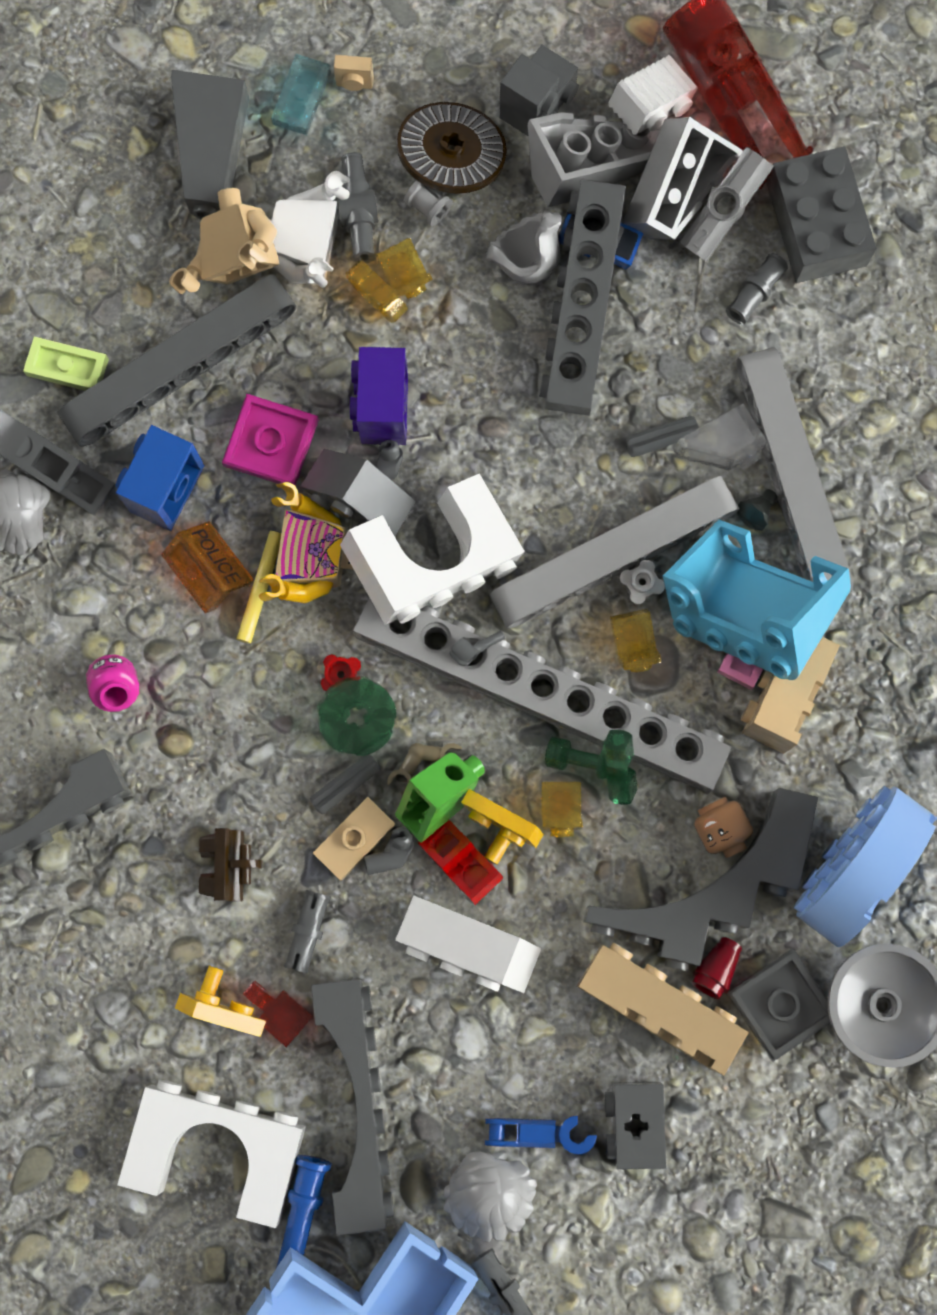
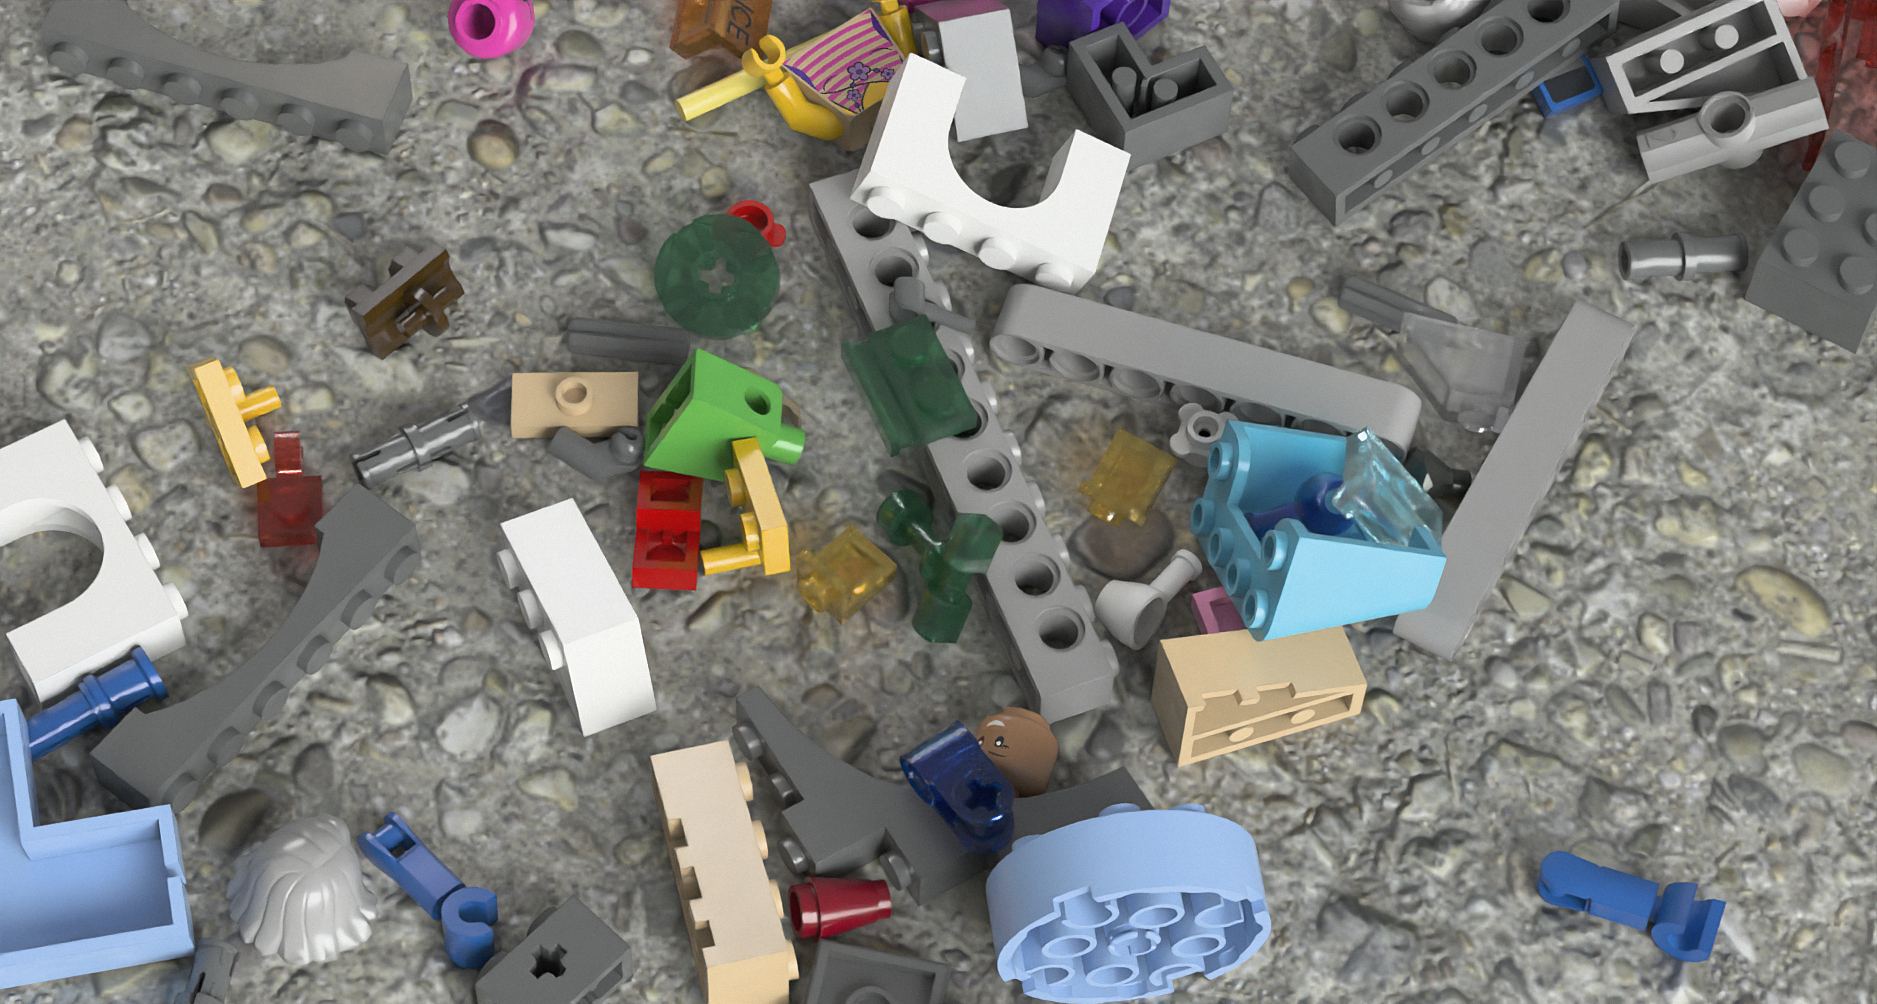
camera: 40 degrees right, 20 degrees down
(453, 444) = (1142, 105): none -> dark grey brick
(505, 693) = (908, 385): none -> clear green plate
(697, 700) = (1135, 609): none -> white bar
(724, 871) = (962, 787): none -> clear blue piece
(732, 579) = (1307, 508): none -> clear blue bar
(768, 546) = (1383, 493): none -> clear light blue plate

